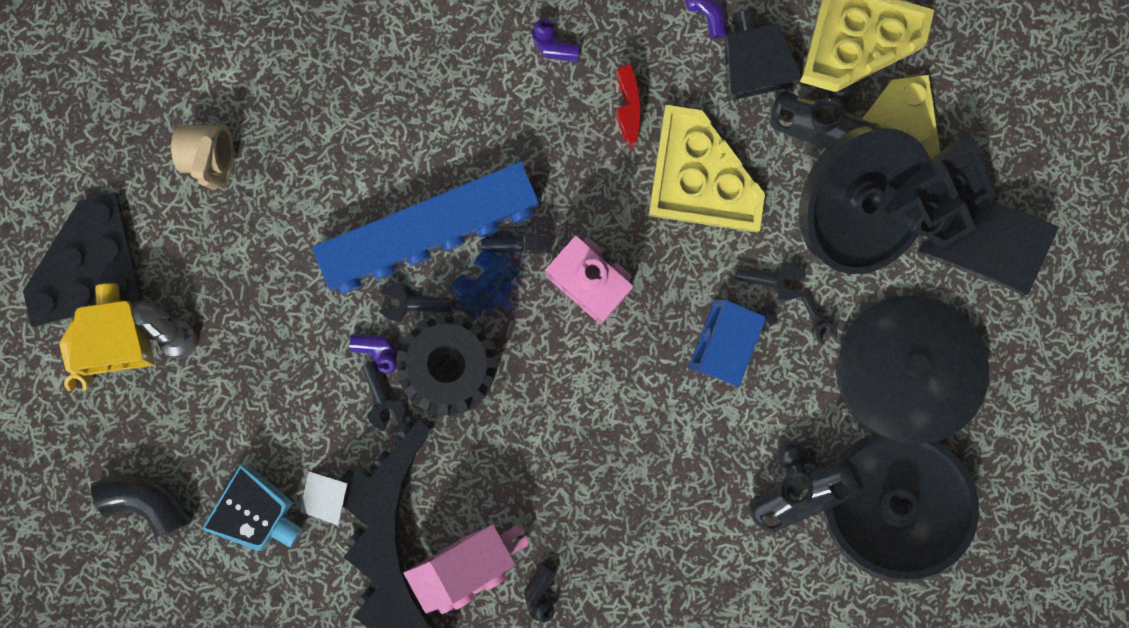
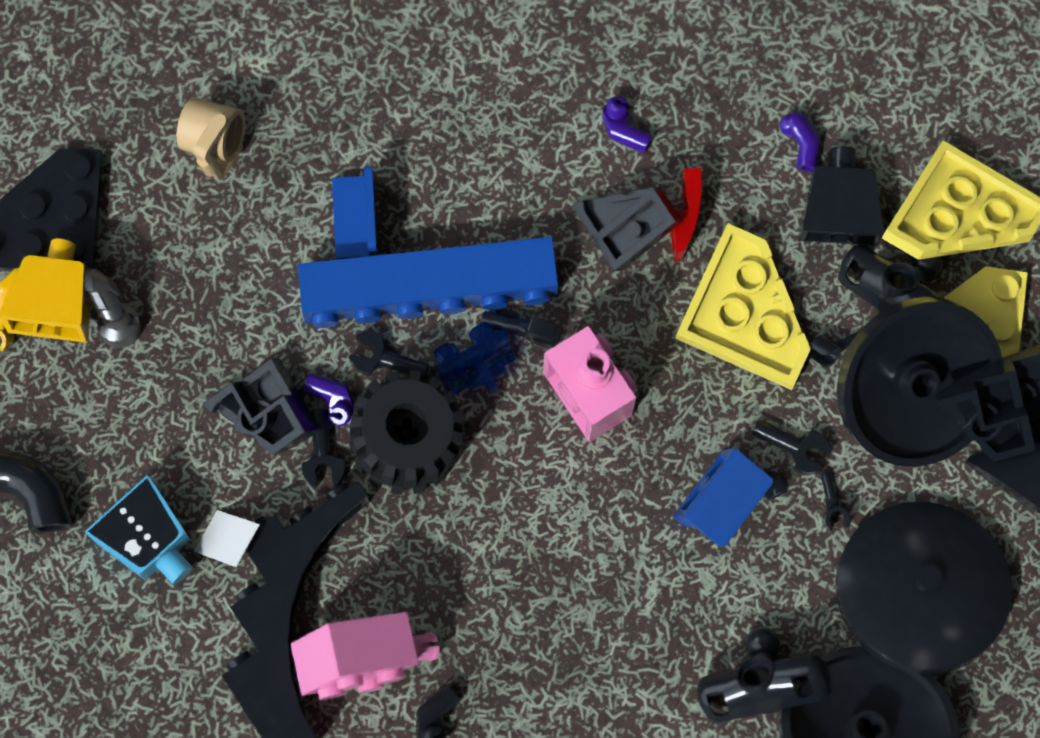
camera: 15 degrees right, 10 degrees down
(324, 375) = (267, 408): none -> black slope
(349, 188) = (355, 216): none -> blue panel
(581, 129) = (628, 223): none -> black wing
(778, 192) = (826, 351): none -> black hand

